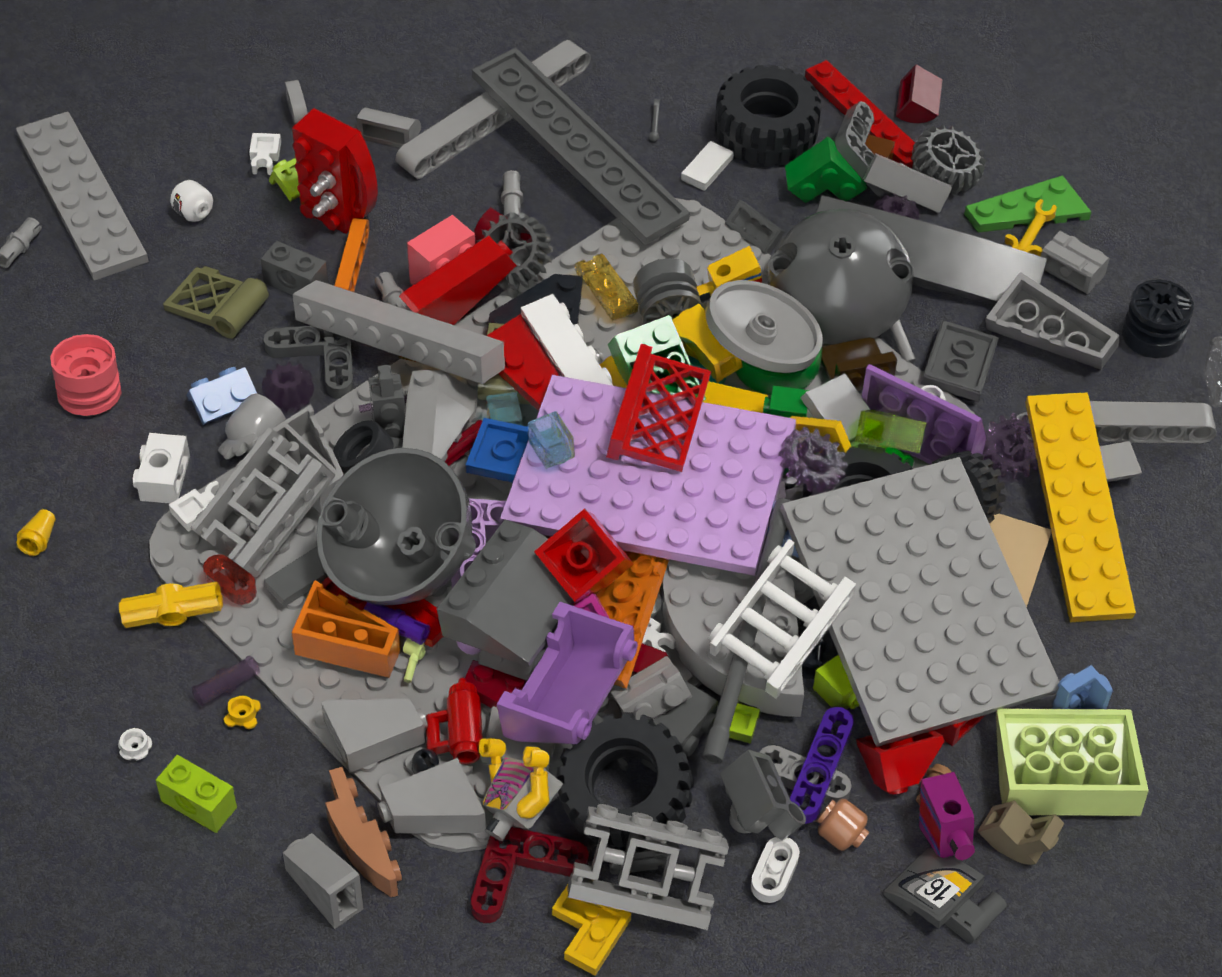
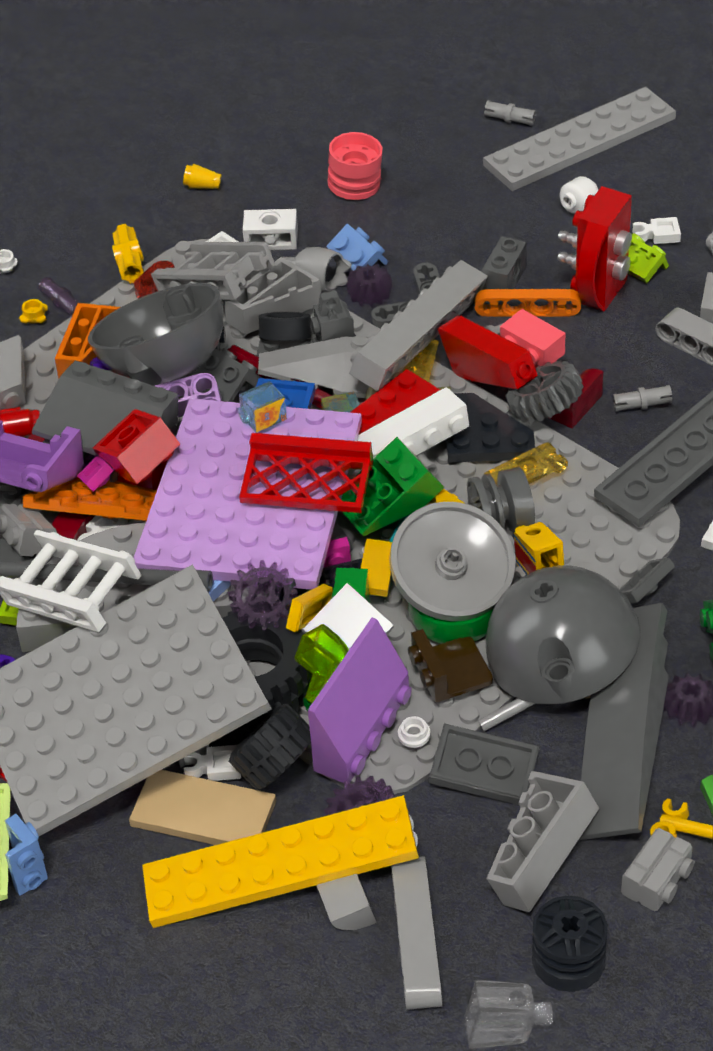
camera: 90 degrees right, 5 degrees down
(231, 308) = (464, 242): olive piece -> none

